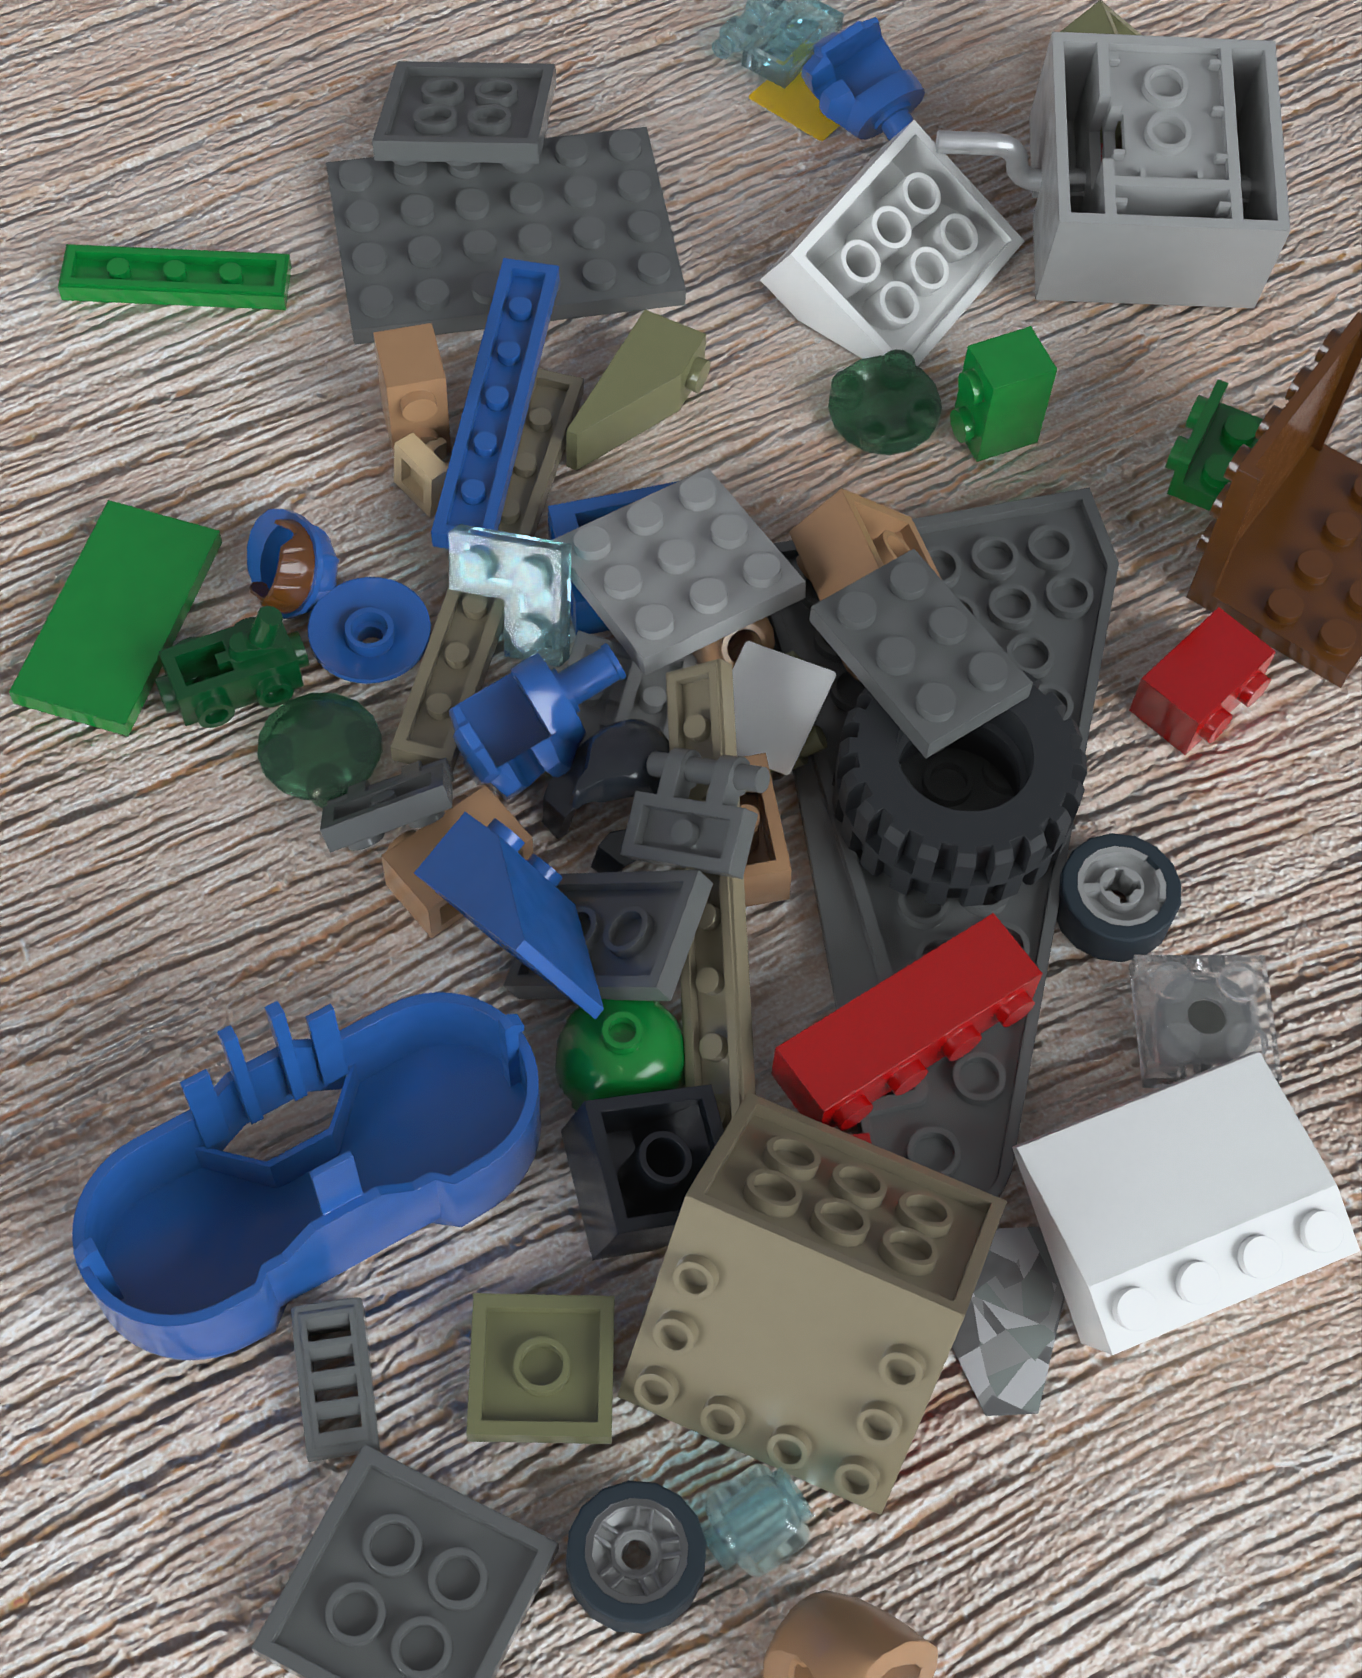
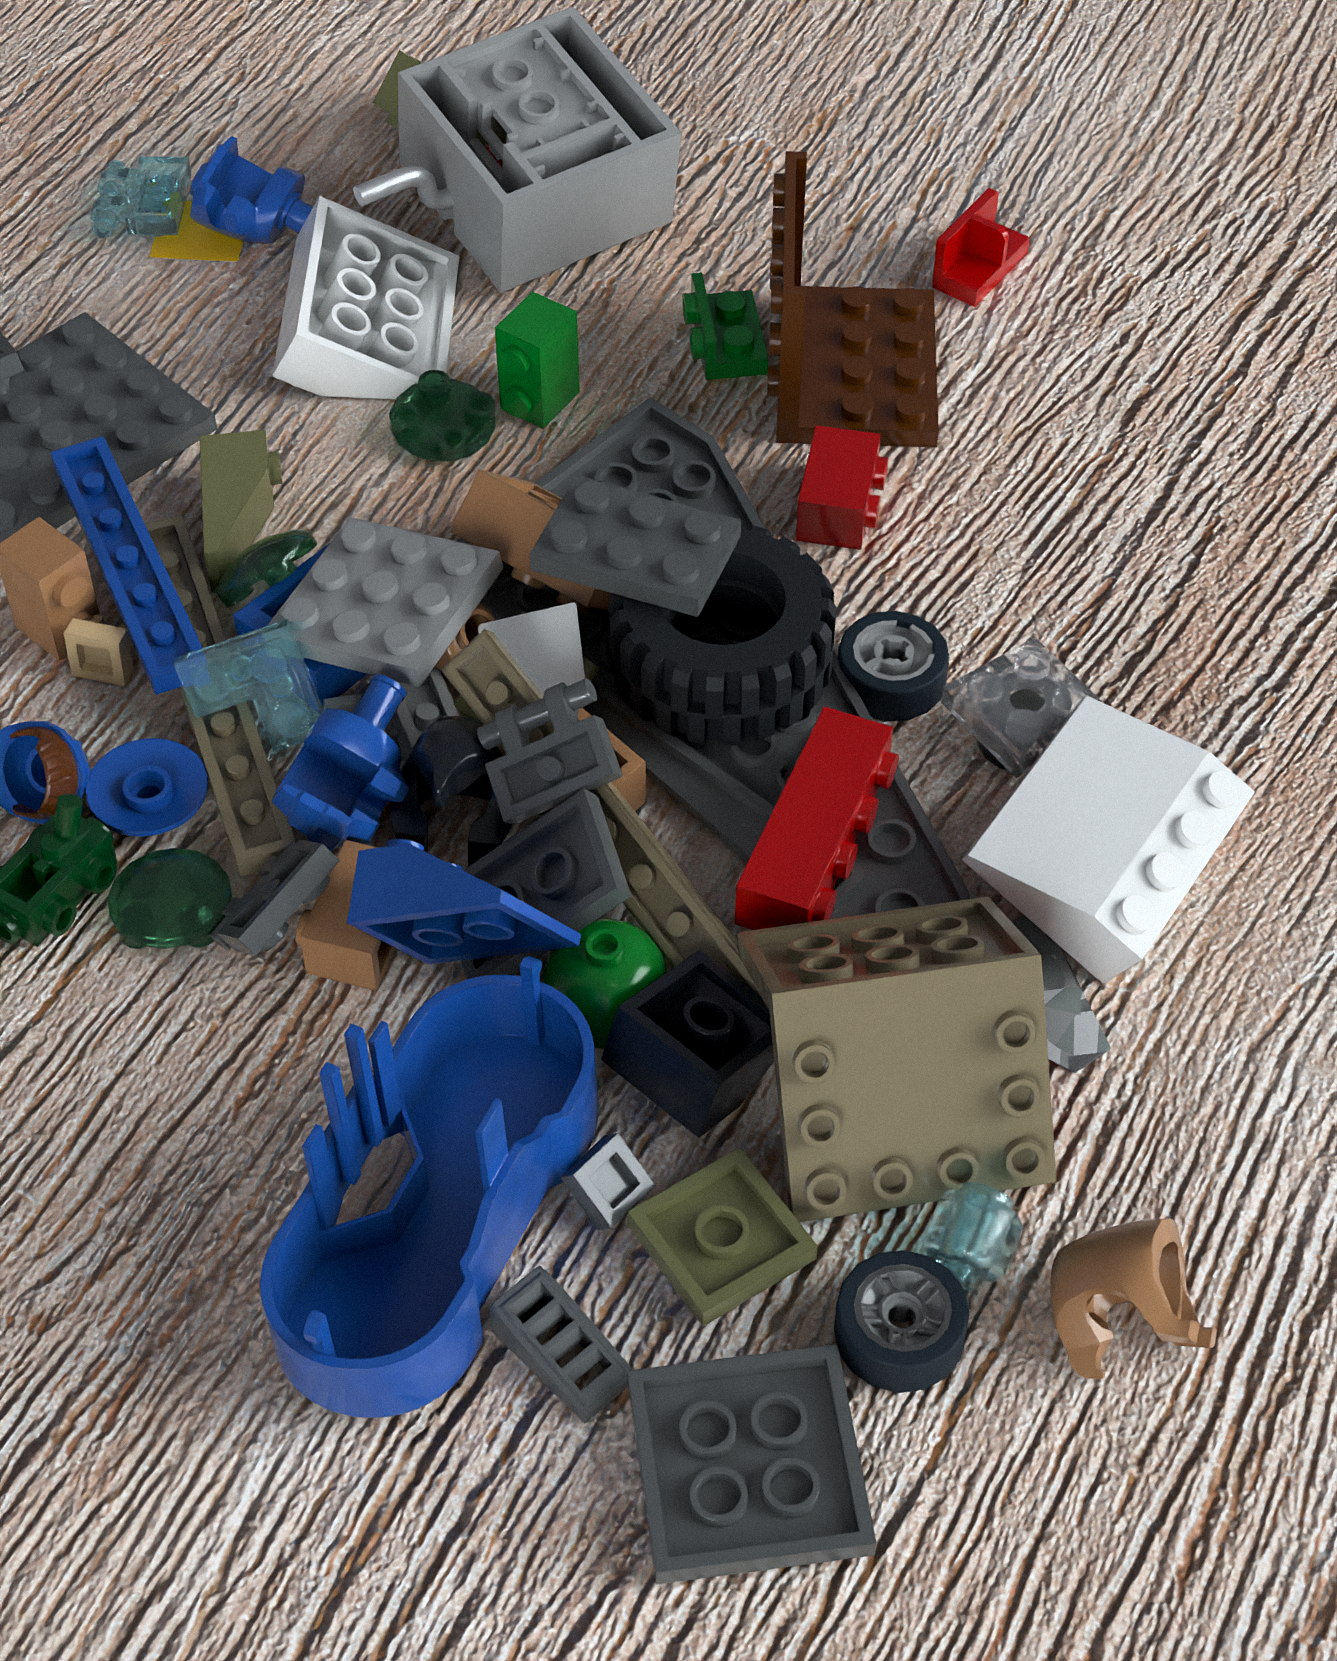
camera: 30 degrees left, 10 degrees down
(480, 1252) = (608, 1181): none -> plate
(613, 468) = (265, 560): none -> clear green dish

